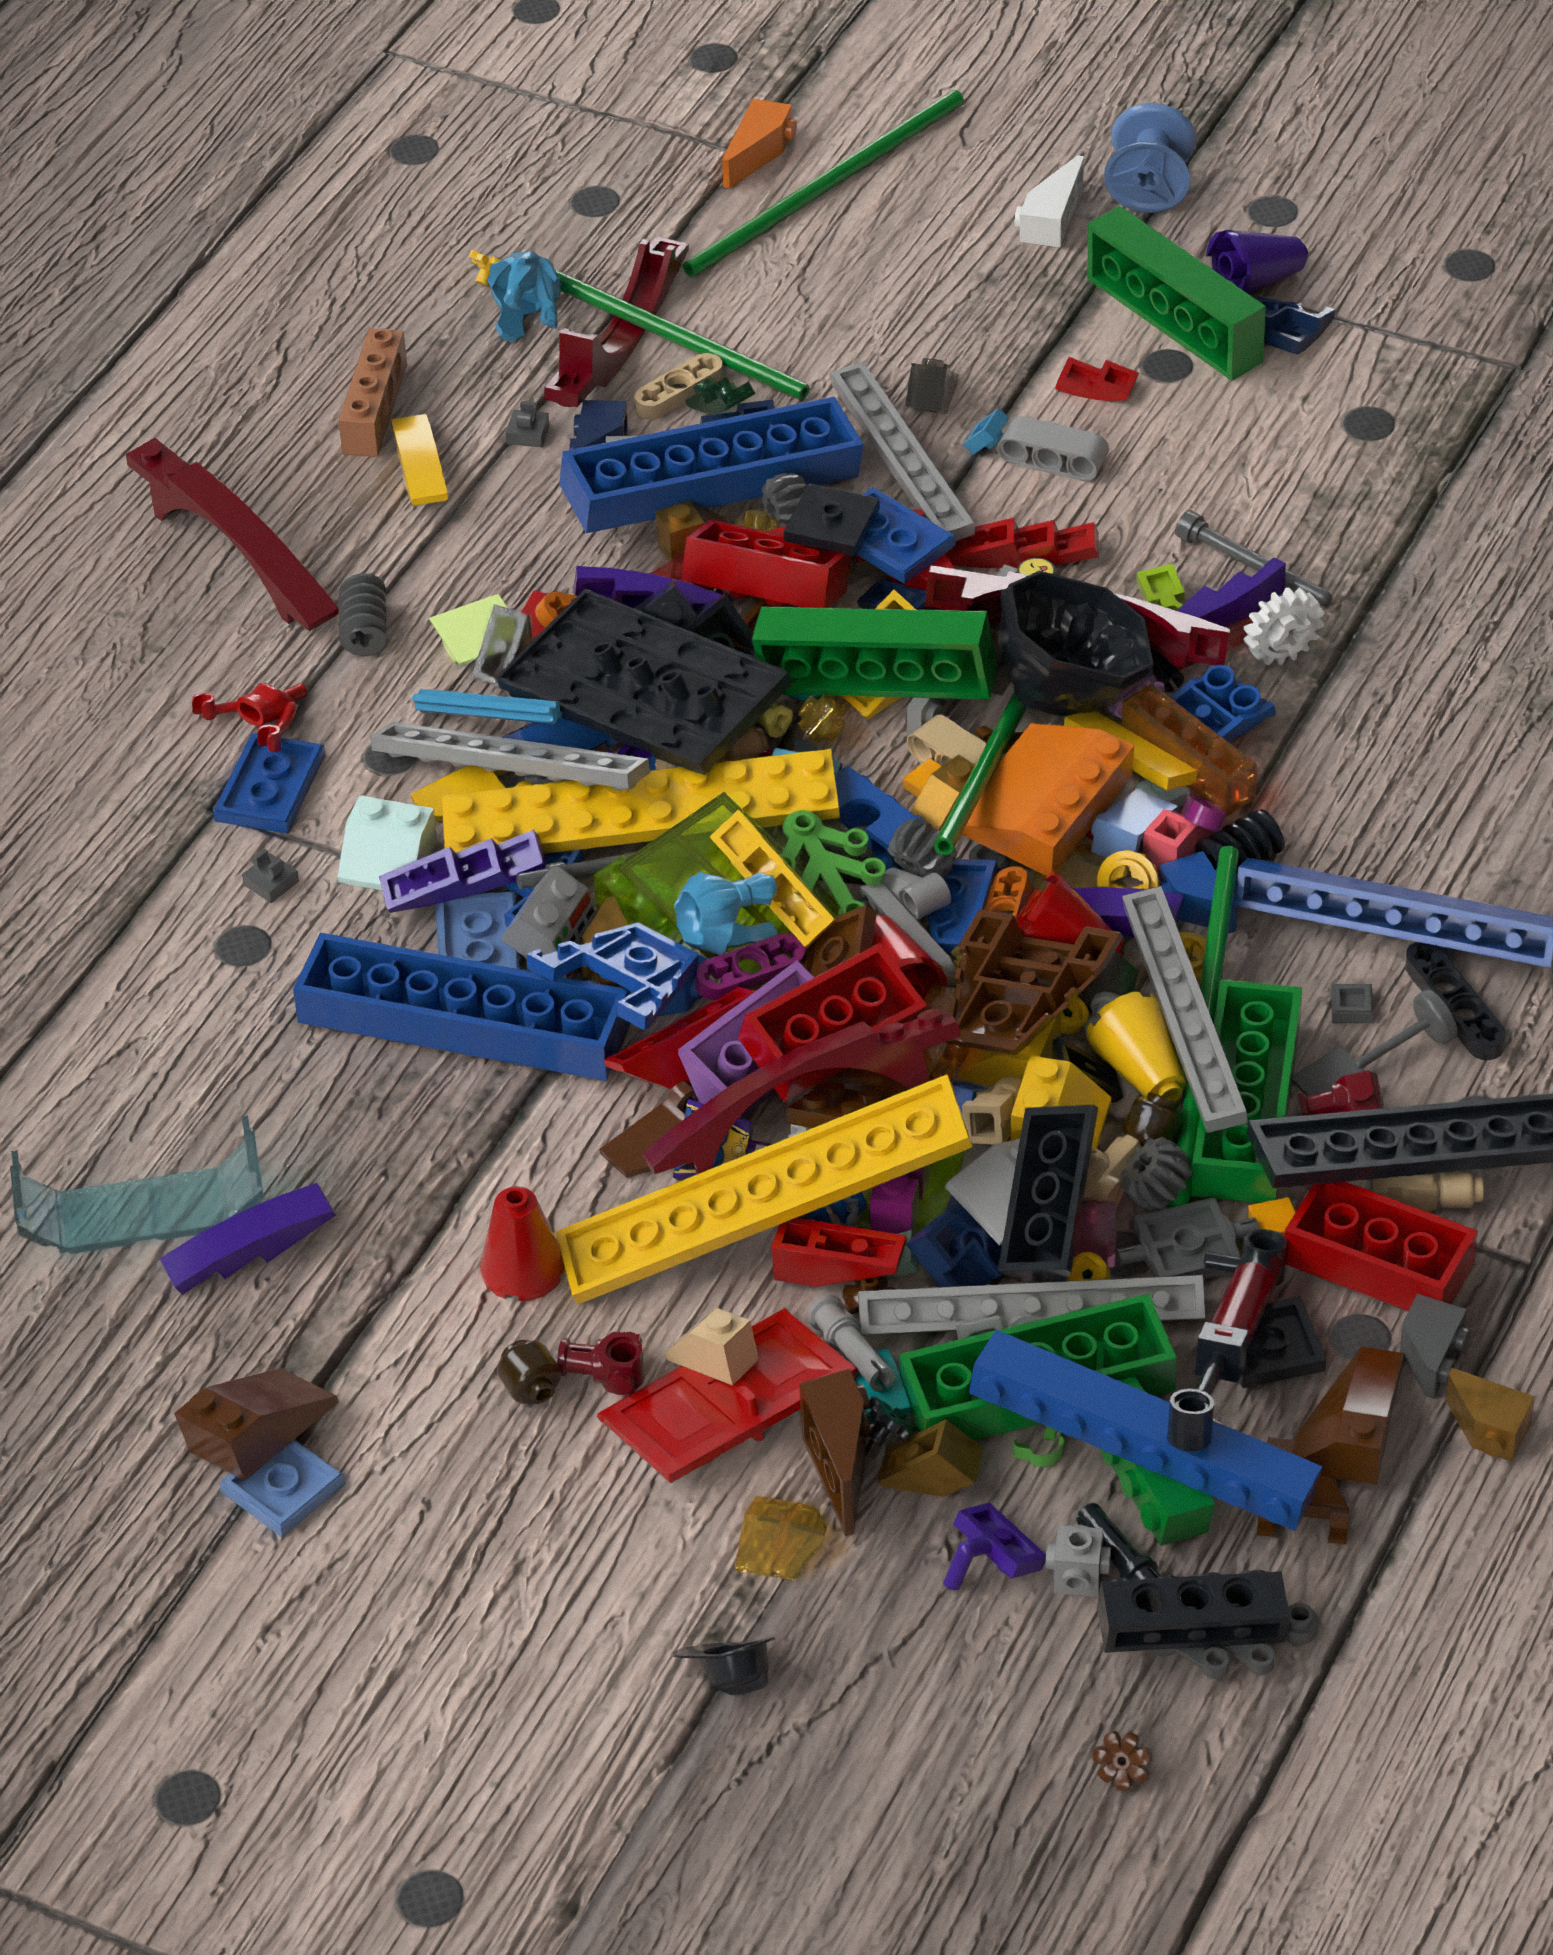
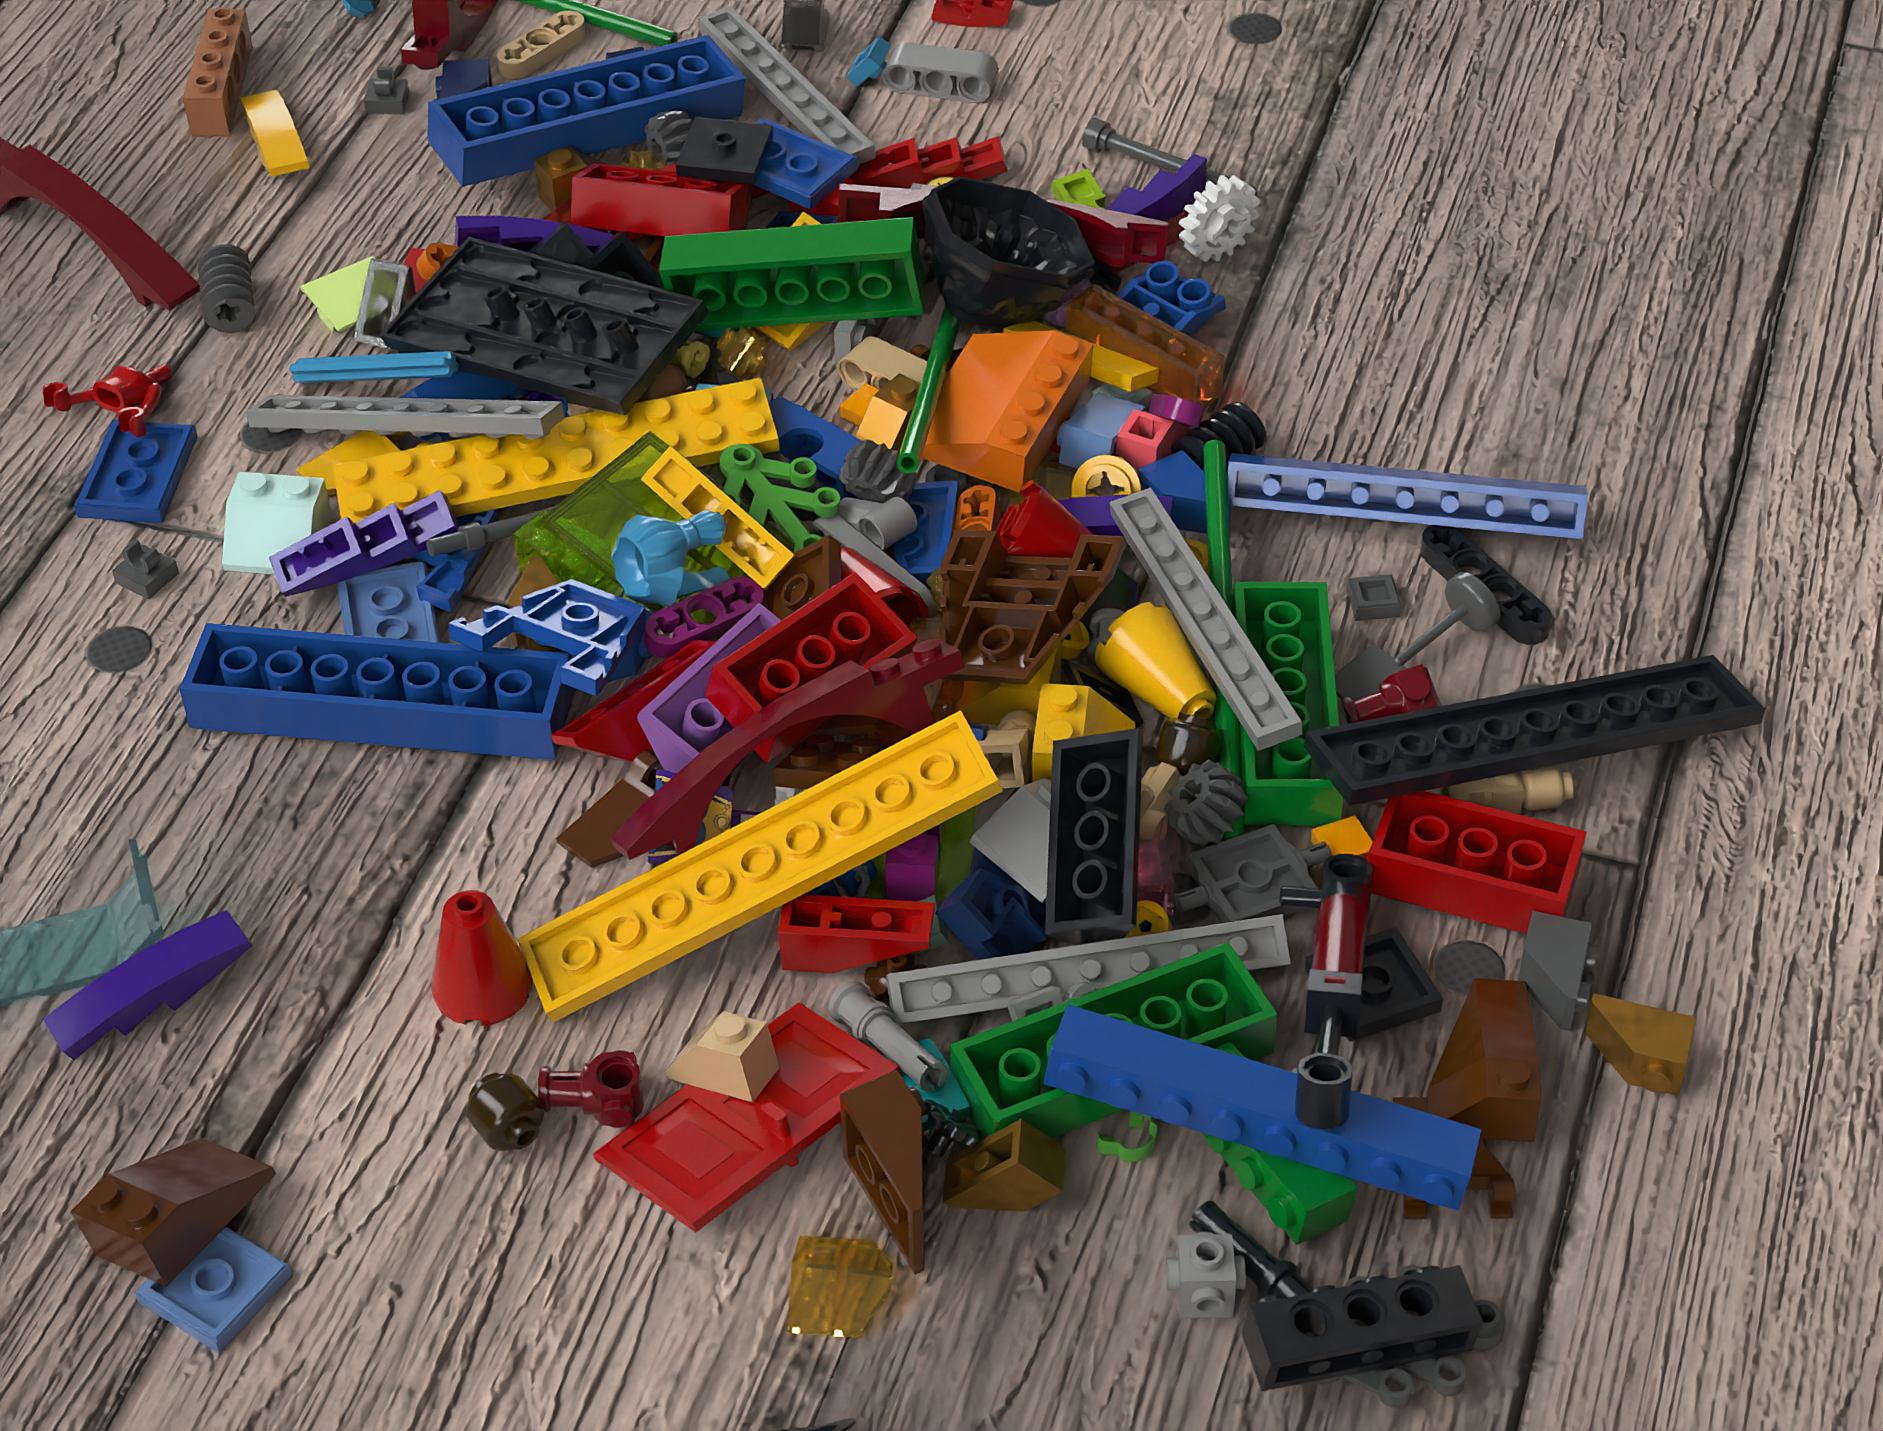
camera: 10 degrees left, 0 degrees up
(551, 915) = (472, 578): light grey slope -> none
(718, 396) = (584, 49): clear green slope -> none
(998, 1539) = (1100, 1258): dark purple plate -> none

